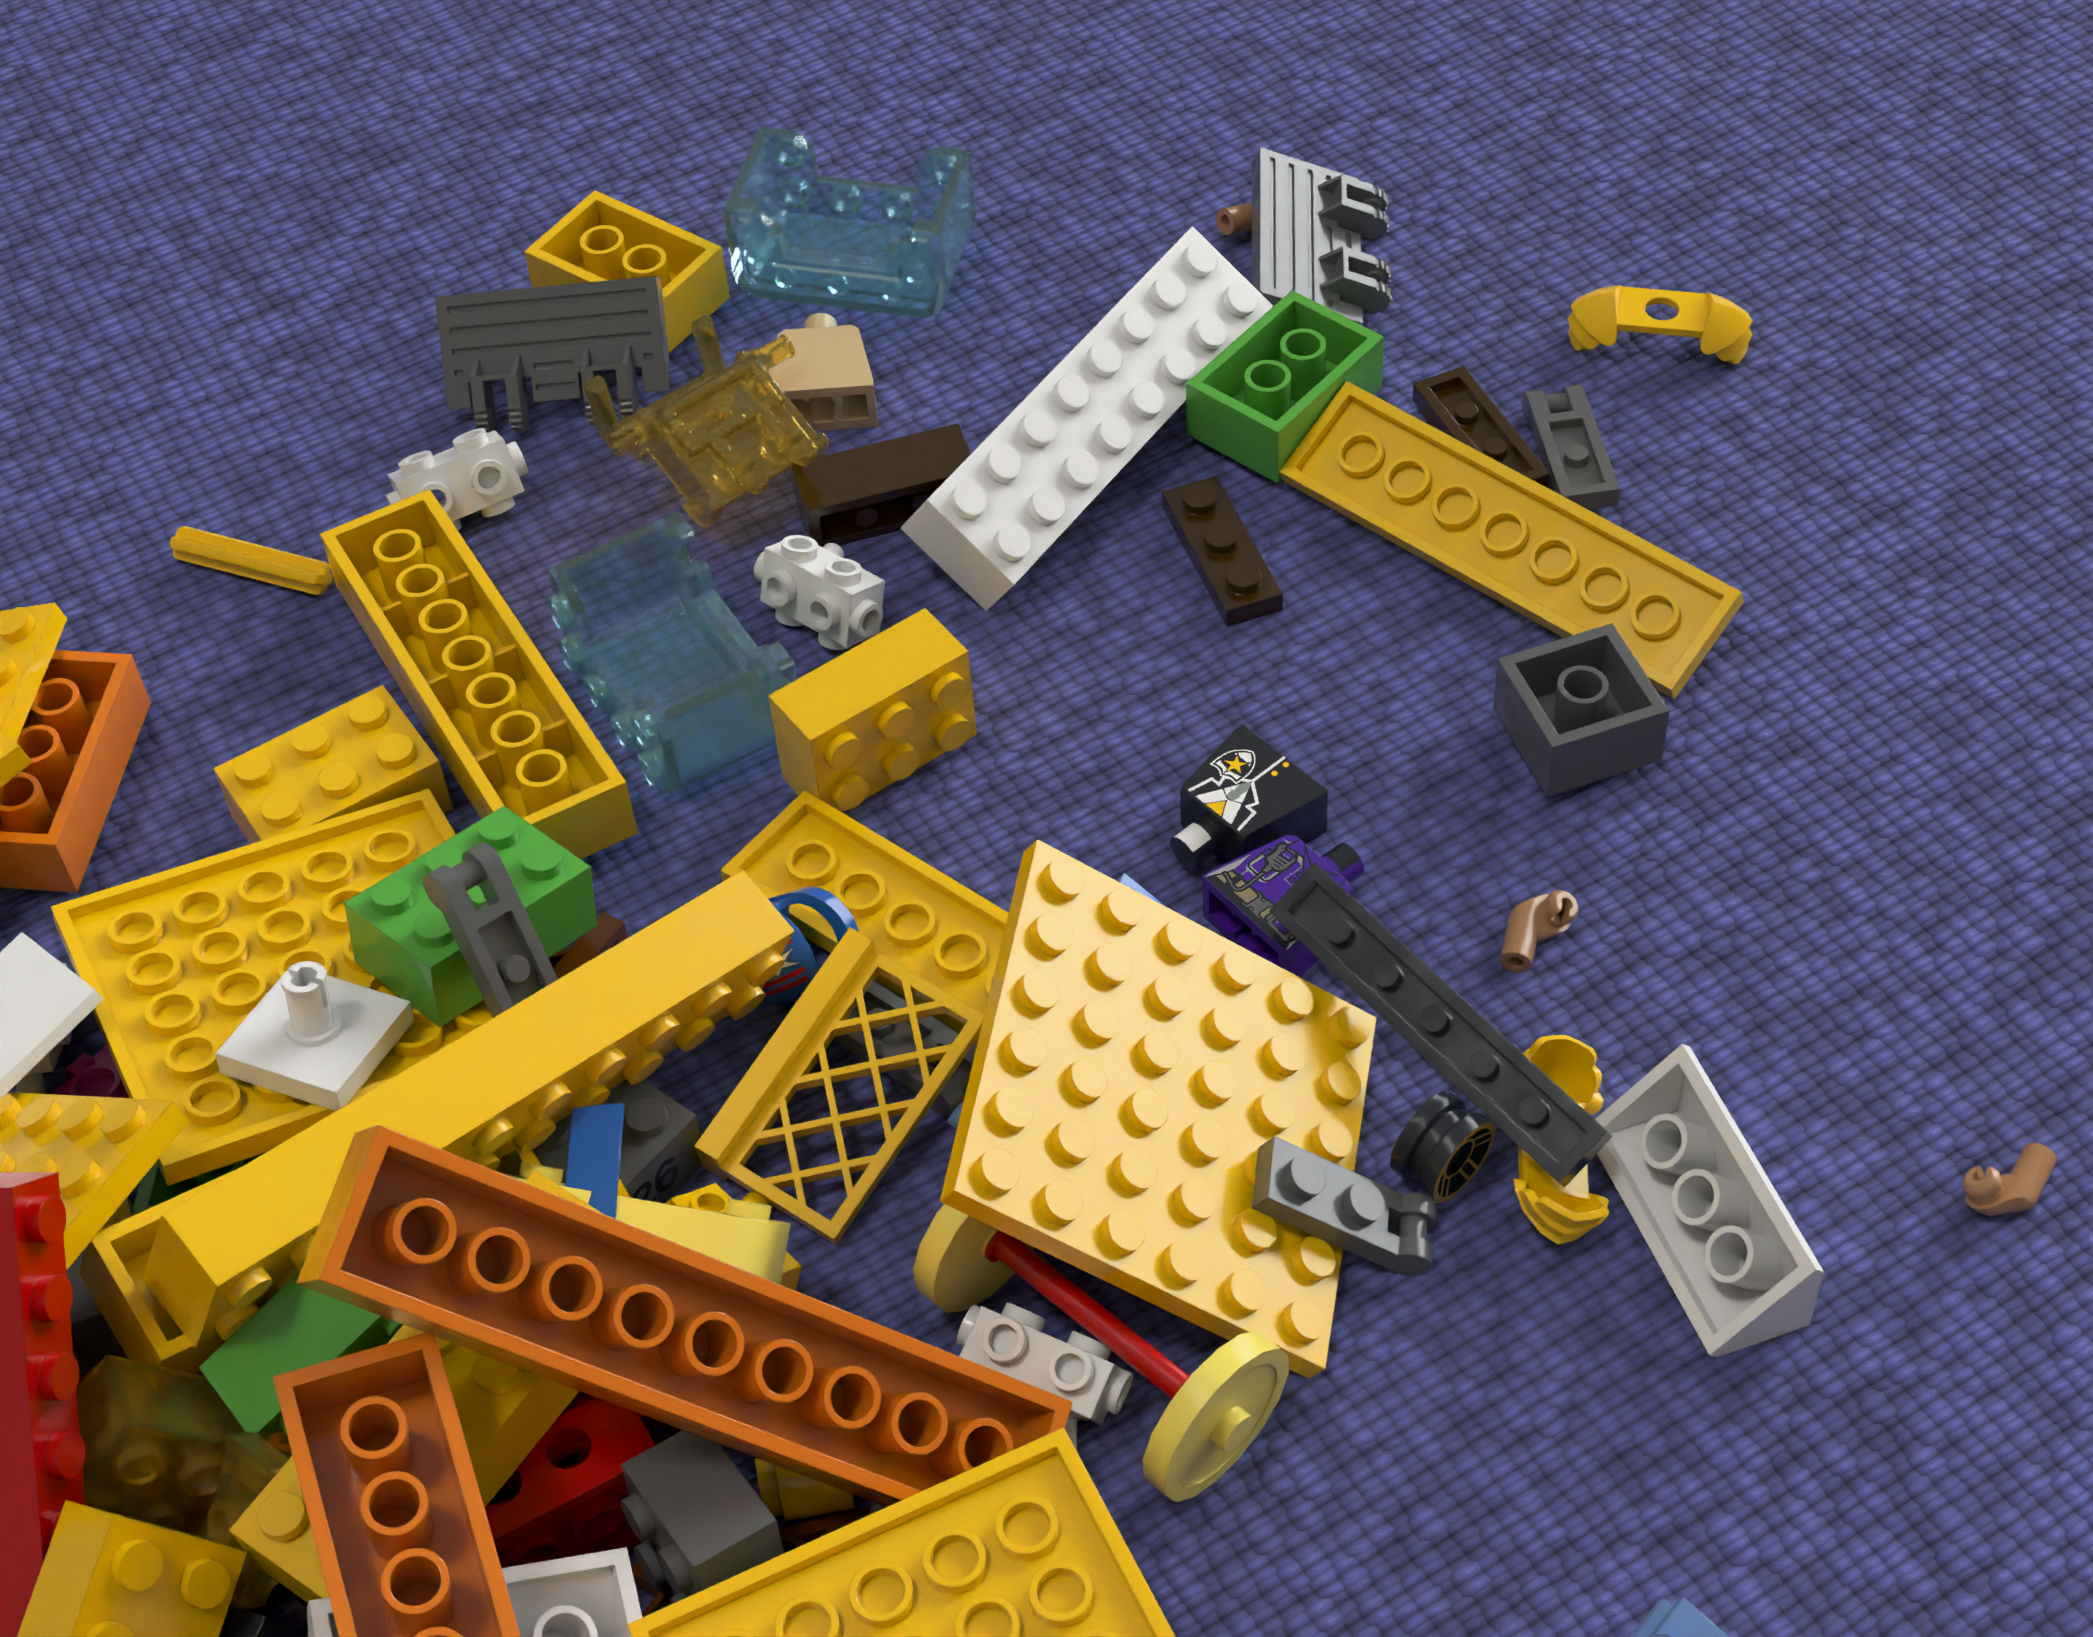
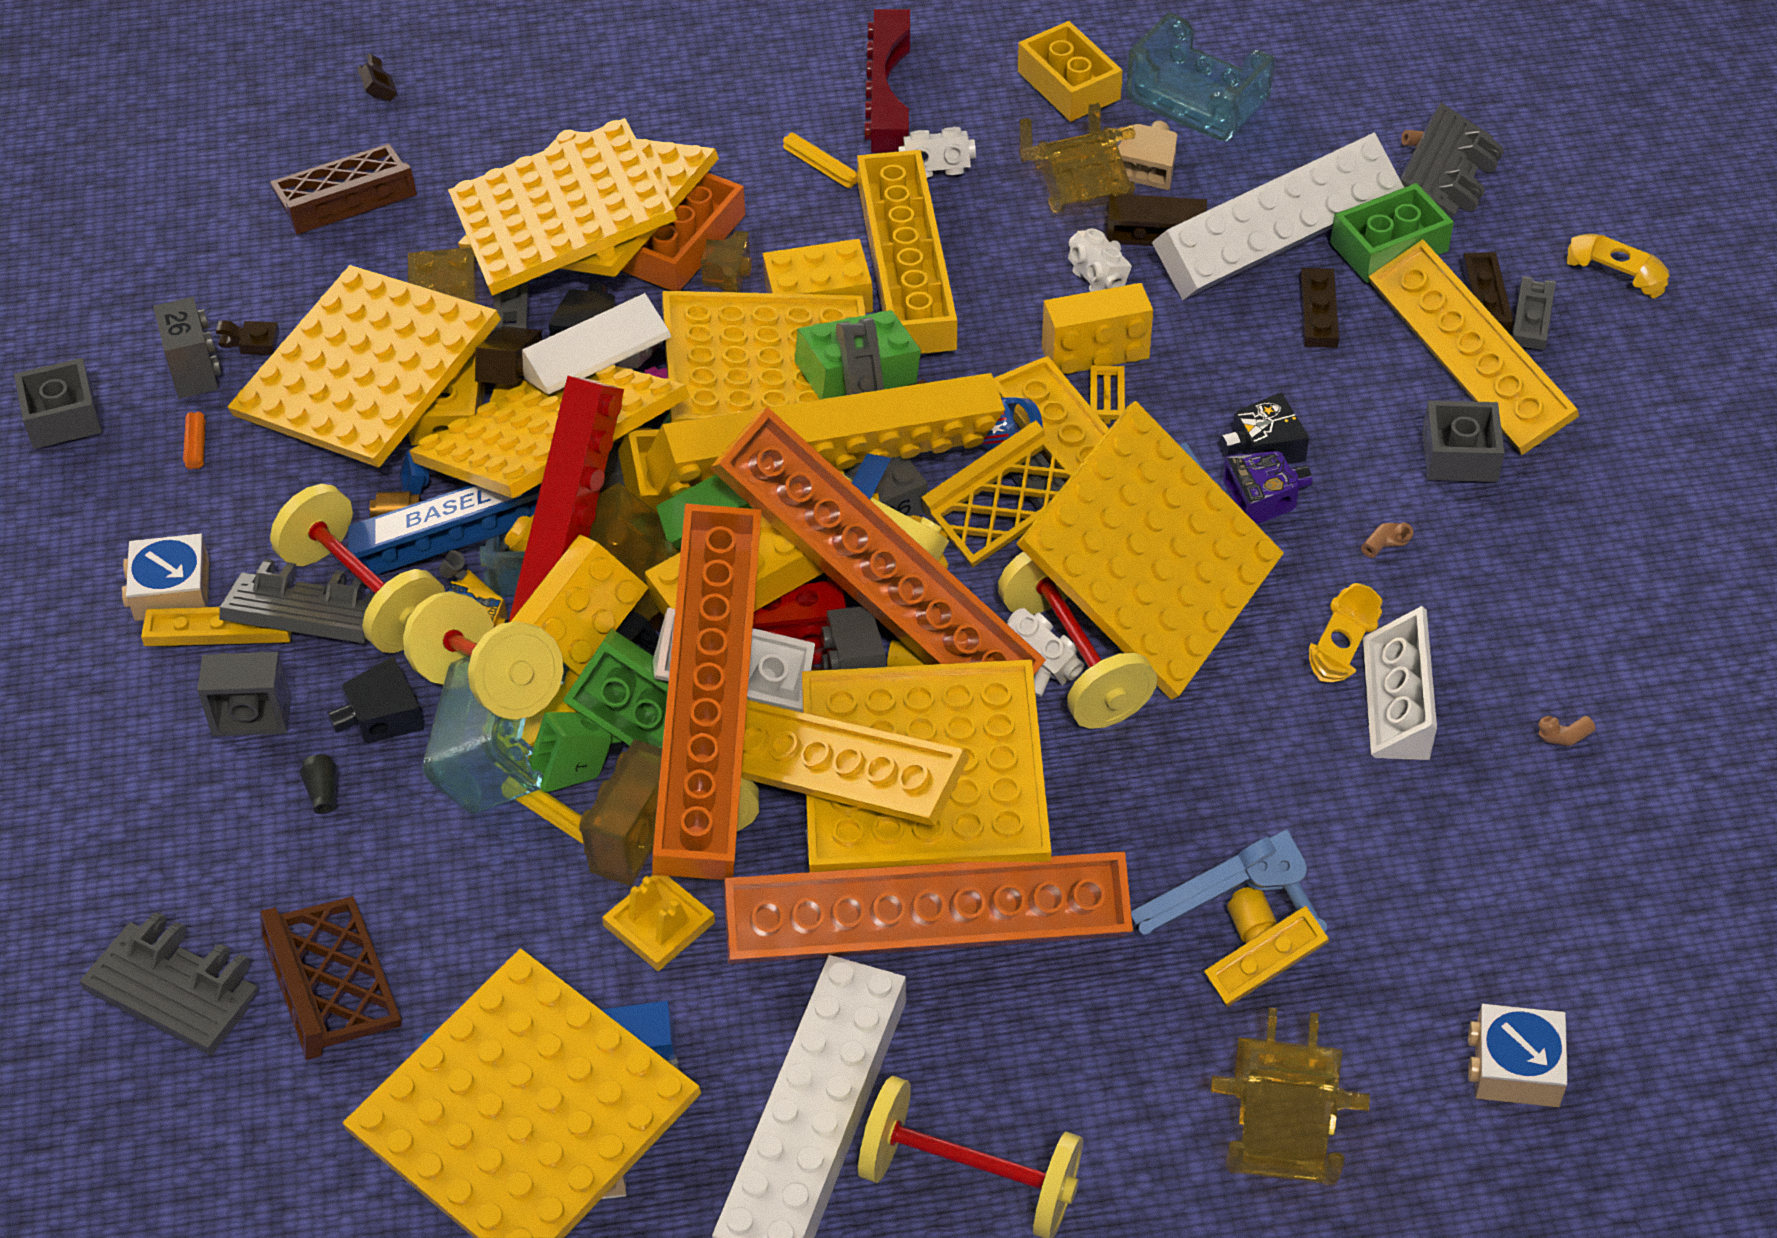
camera: 20 degrees right, 0 degrees up
(151, 806) = (727, 262): none -> clear yellow brick
(315, 1037) = (761, 382): white tile -> none
(344, 445) = (887, 114): none -> dark red arch
(556, 340) = (1016, 93): dark grey hinge -> none
(666, 654) = (1005, 266): clear light blue windscreen -> none
(949, 862) = (1107, 414): none -> yellow tile
(1344, 1207) = (1220, 627): dark grey plate -> none
(1441, 1025) = (1307, 560): black plate -> none
(1442, 1146) = (1284, 618): black wheel -> none

